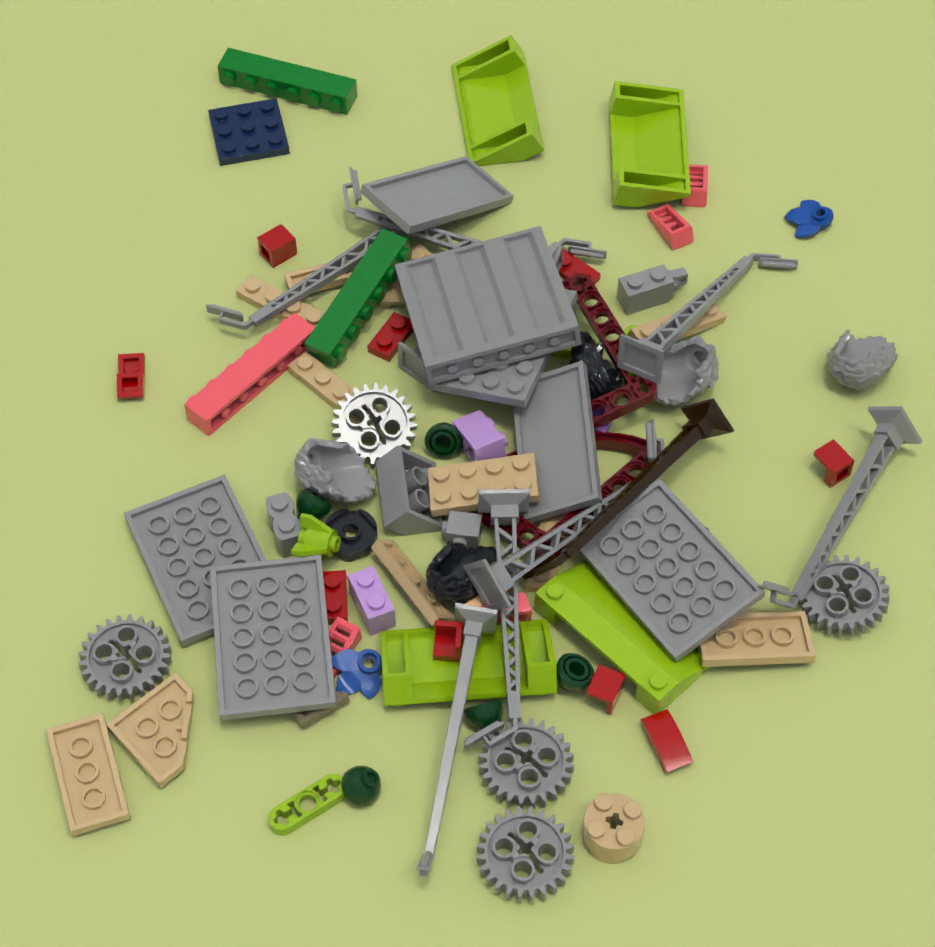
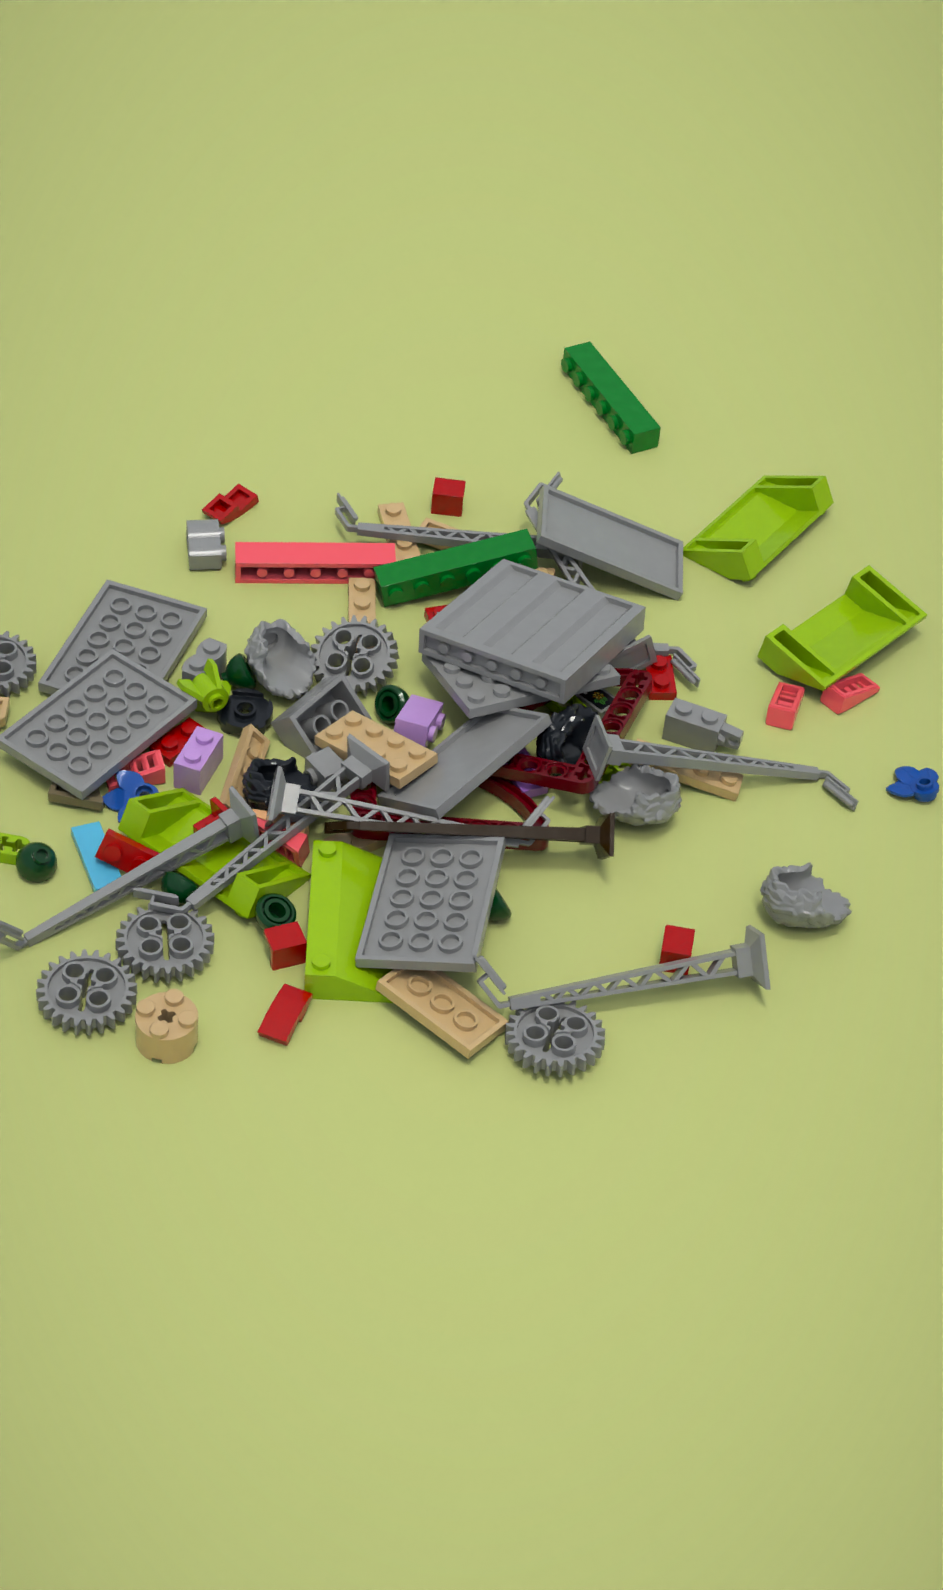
camera: 40 degrees right, 10 degrees down
(156, 424) = (204, 544): none -> light grey brick
(248, 132) = (536, 412): dark blue plate -> none
(394, 742) = (87, 841): none -> medium azure tile
(423, 720) = (123, 851): none -> red plate

